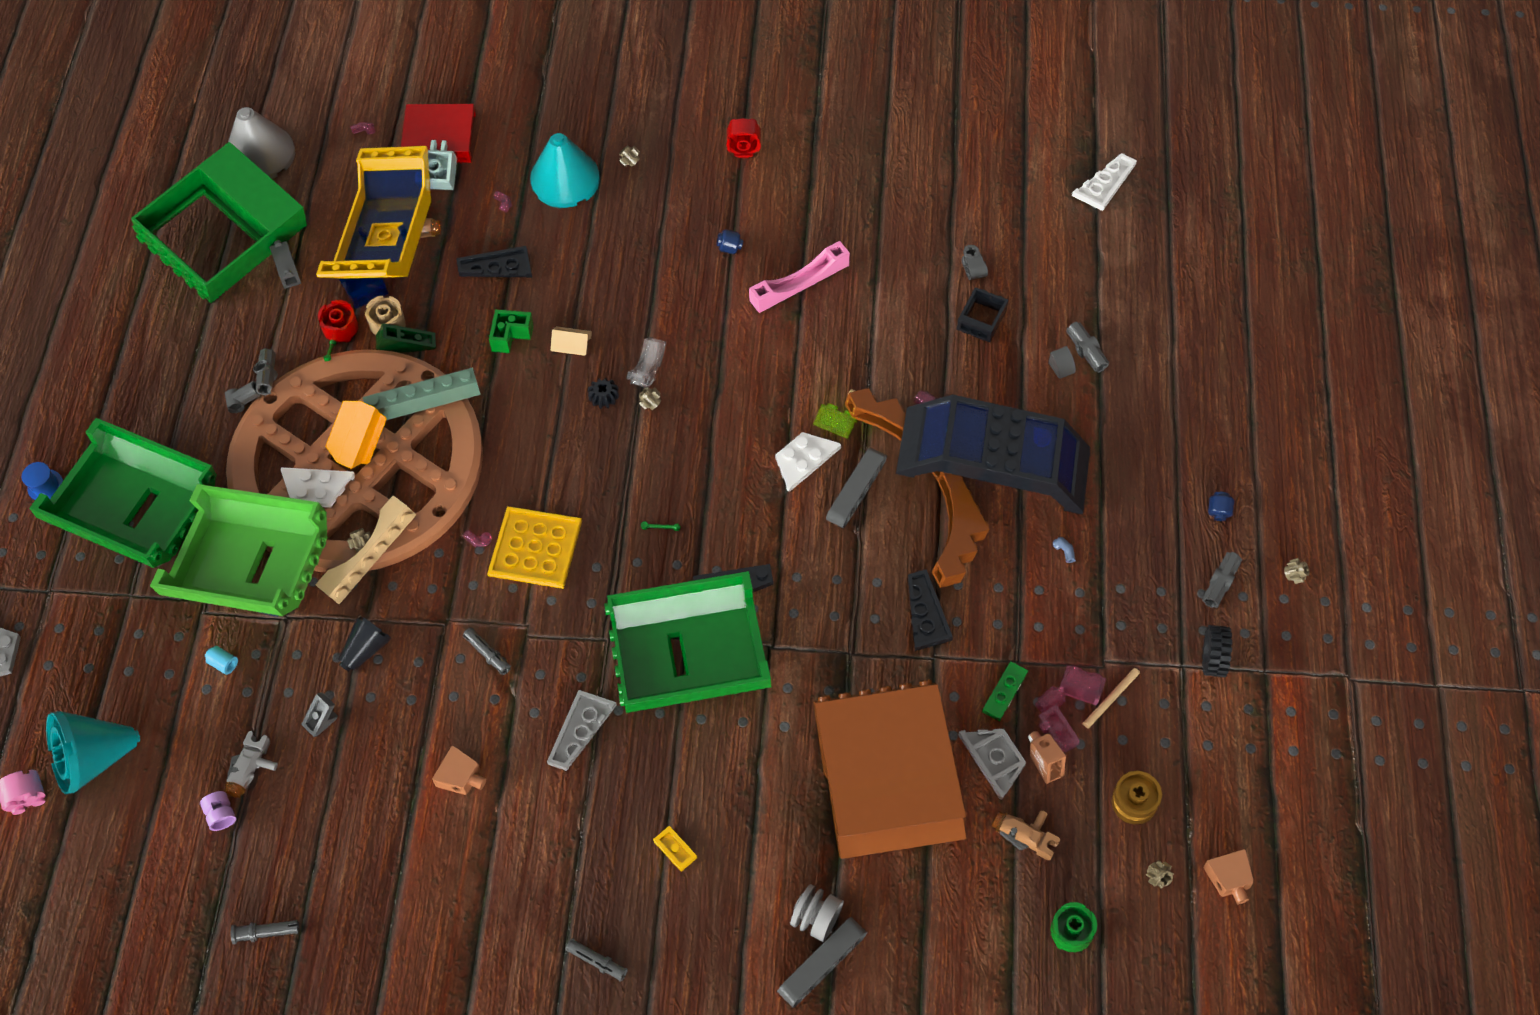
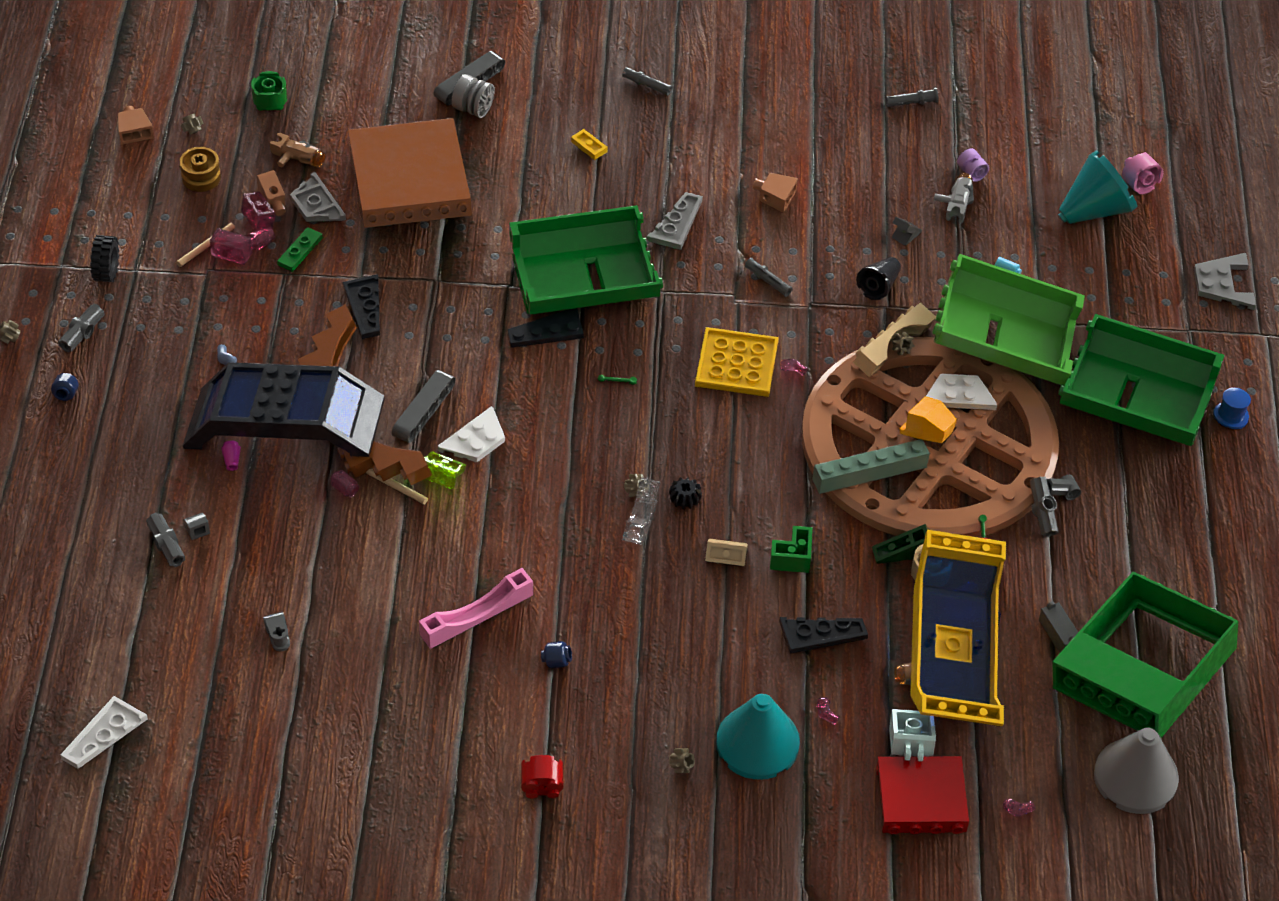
camera: 175 degrees right, 10 degrees down
(975, 327) = (280, 556): black window -> none

